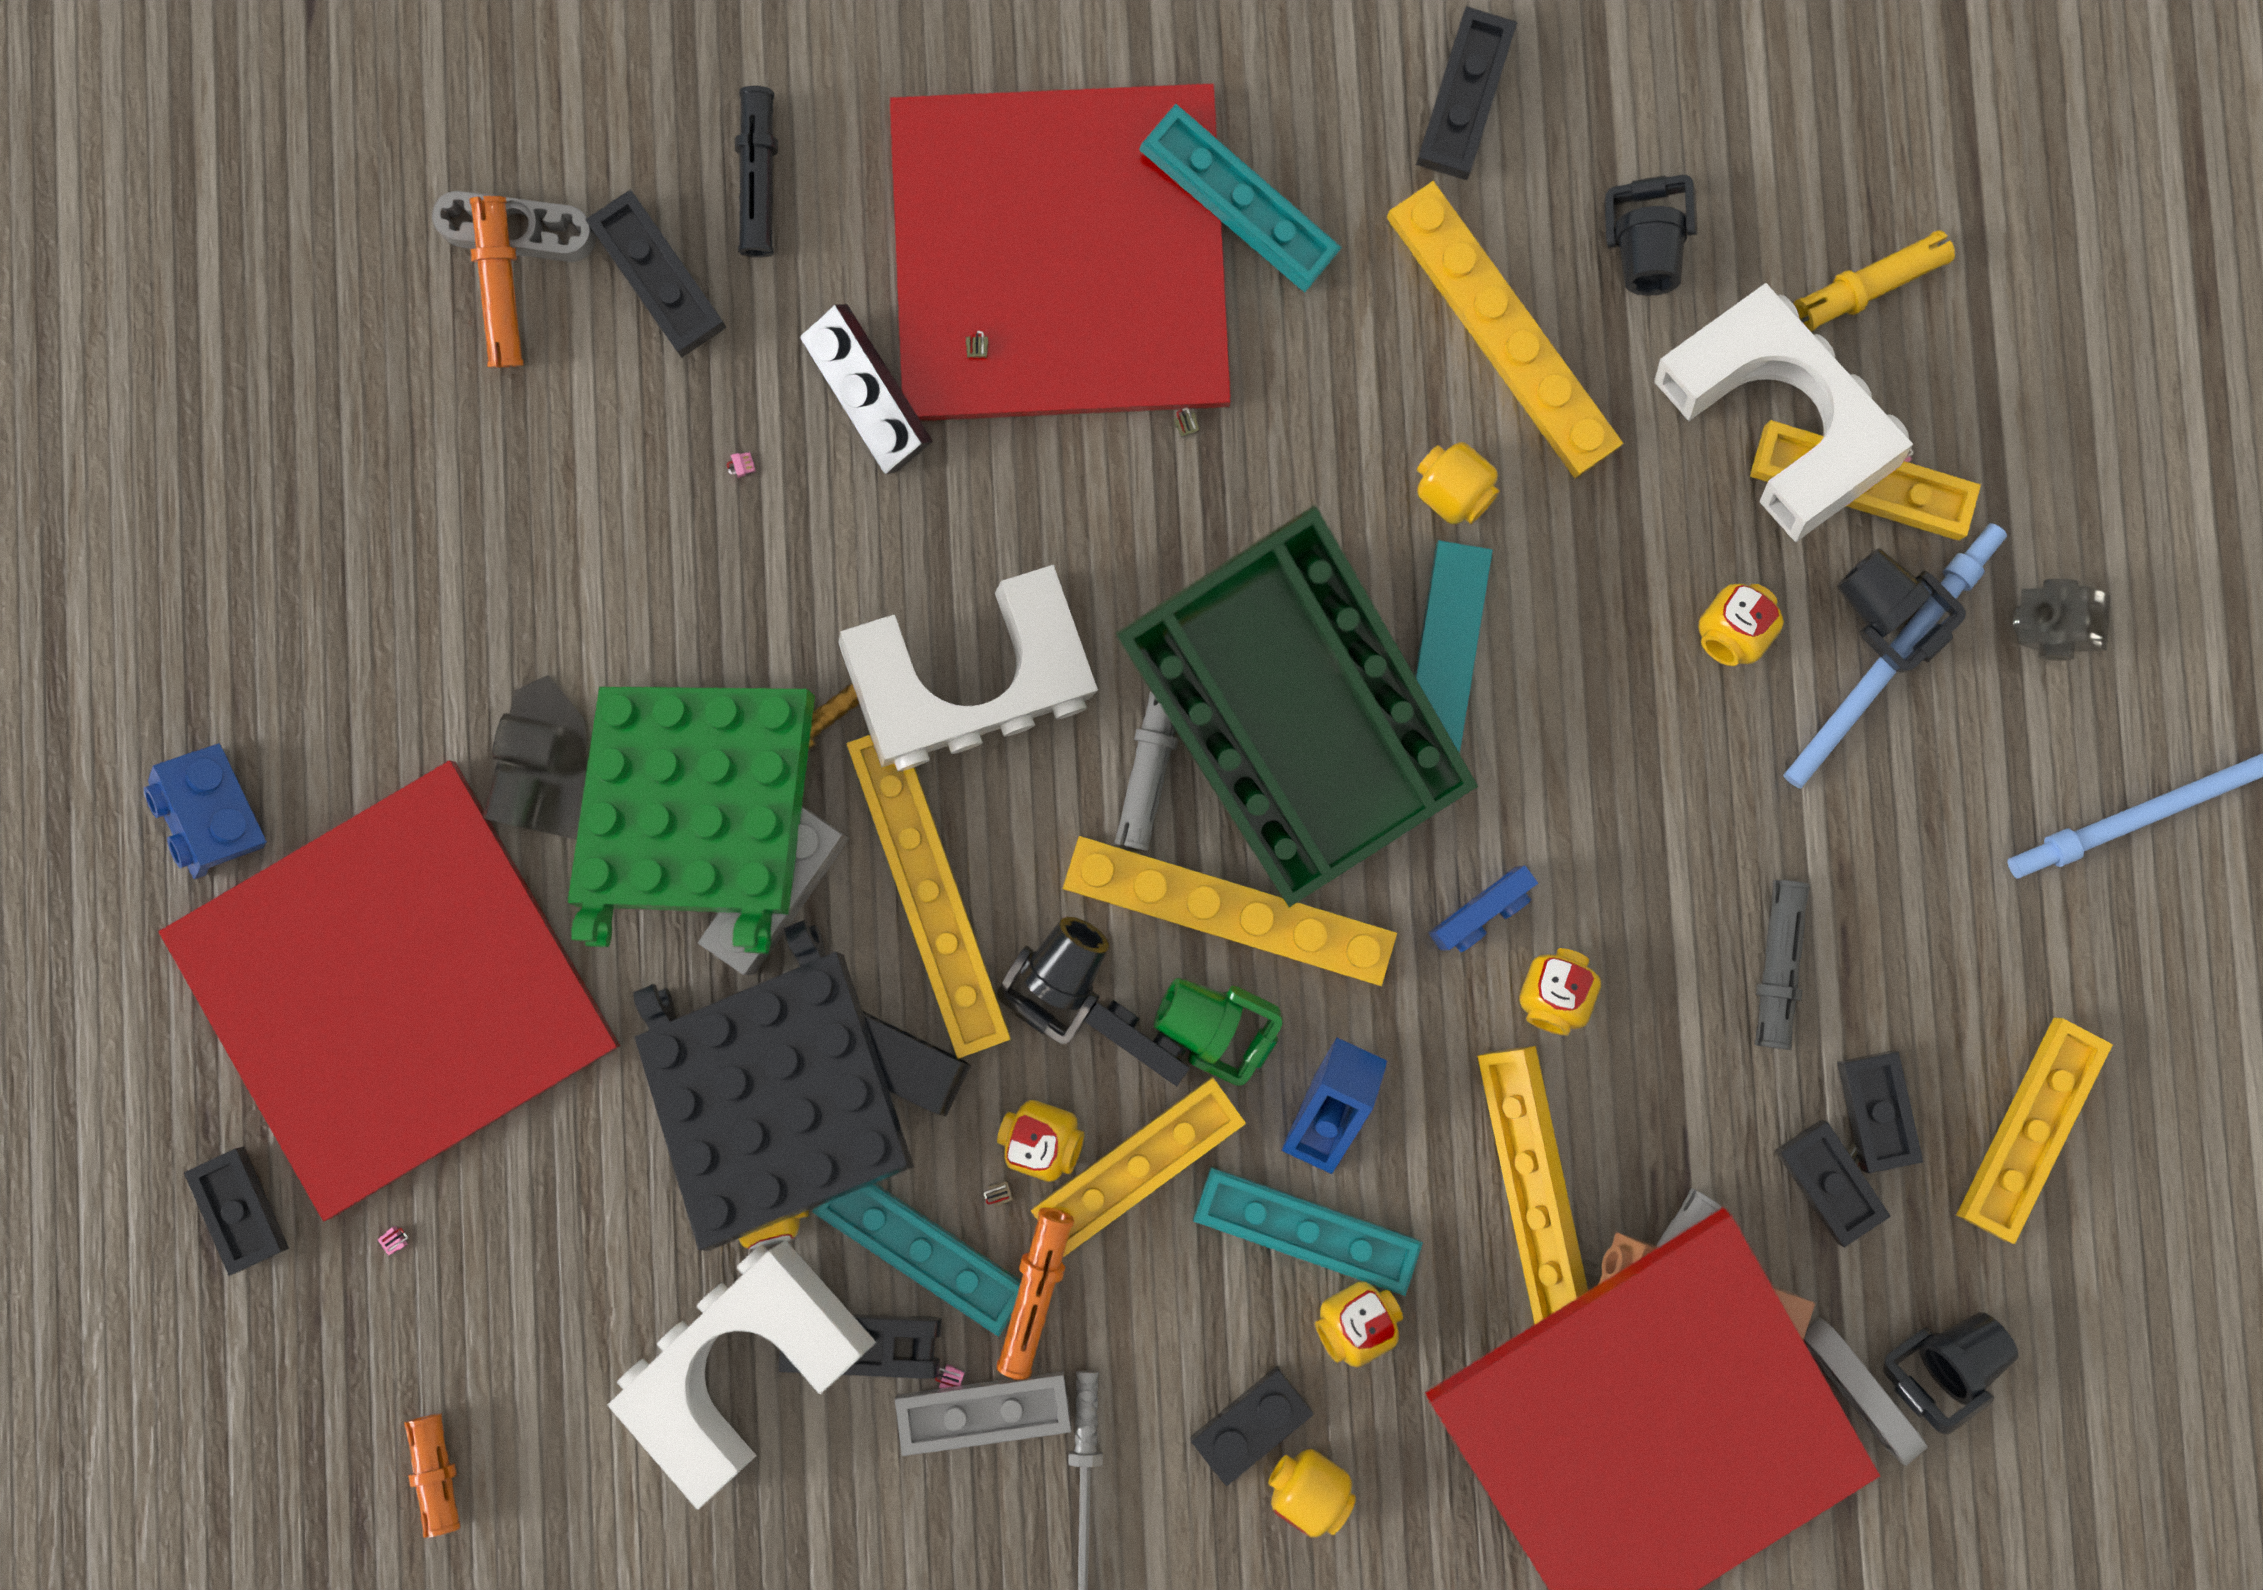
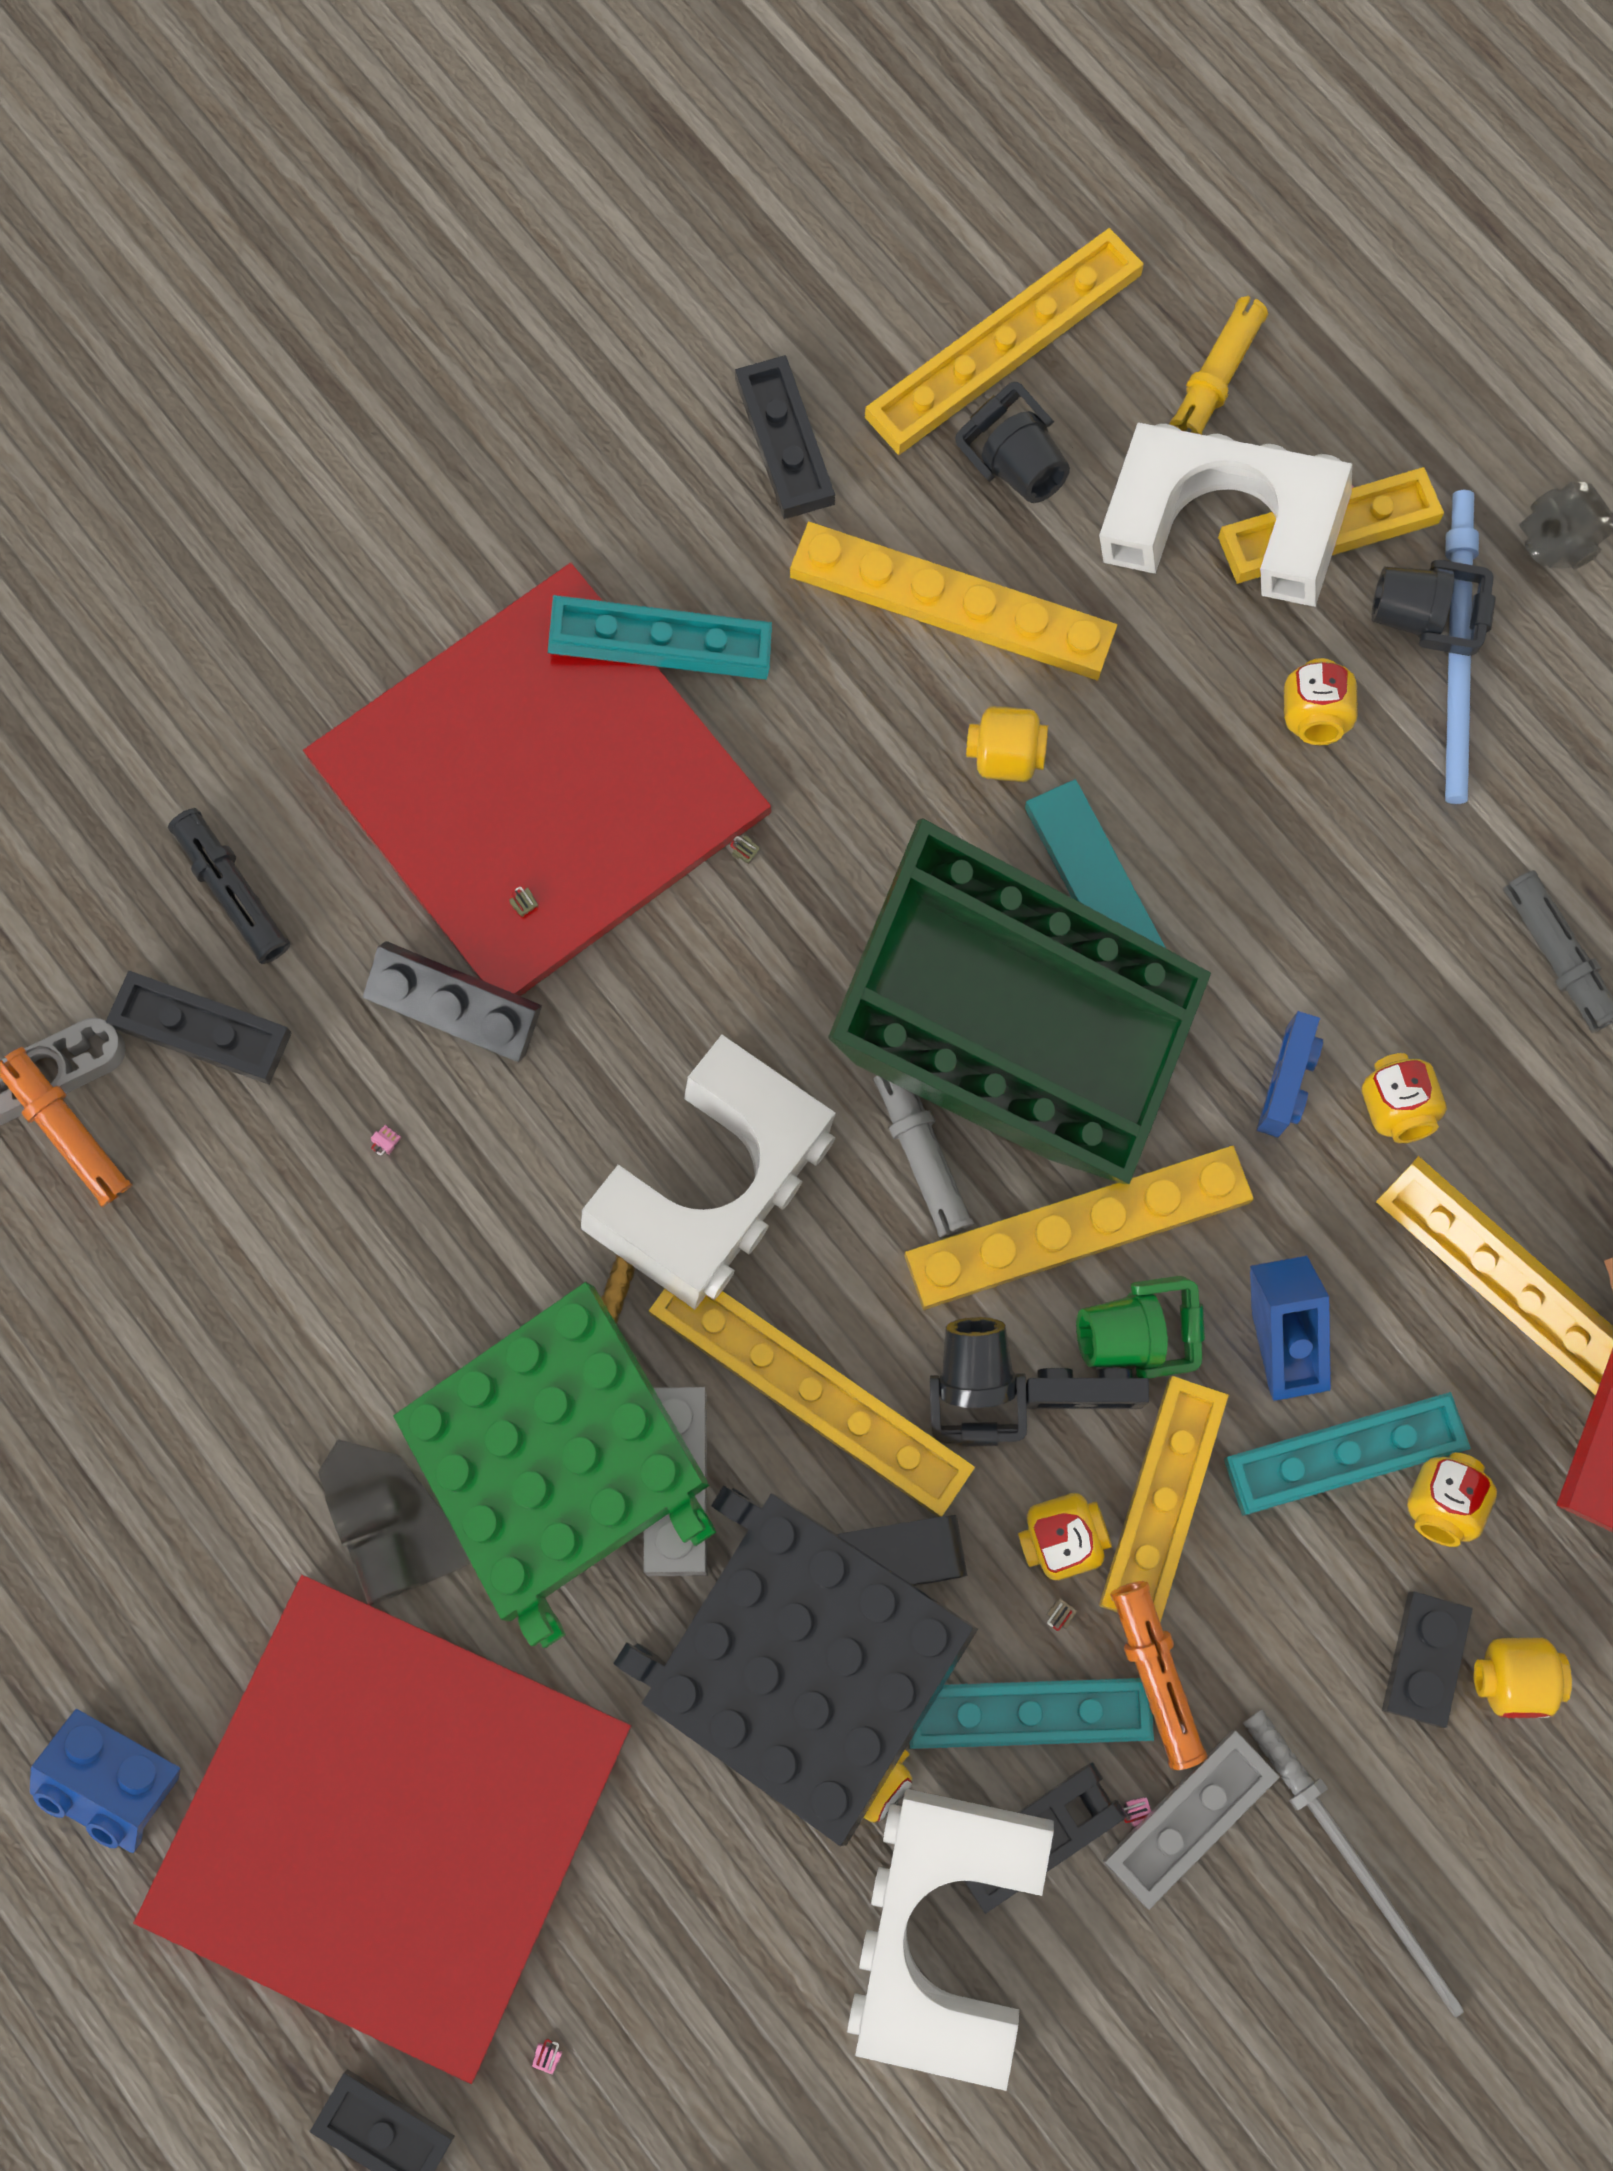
camera: 30 degrees left, 10 degrees down
(1712, 132) = (1003, 341): none -> yellow plate

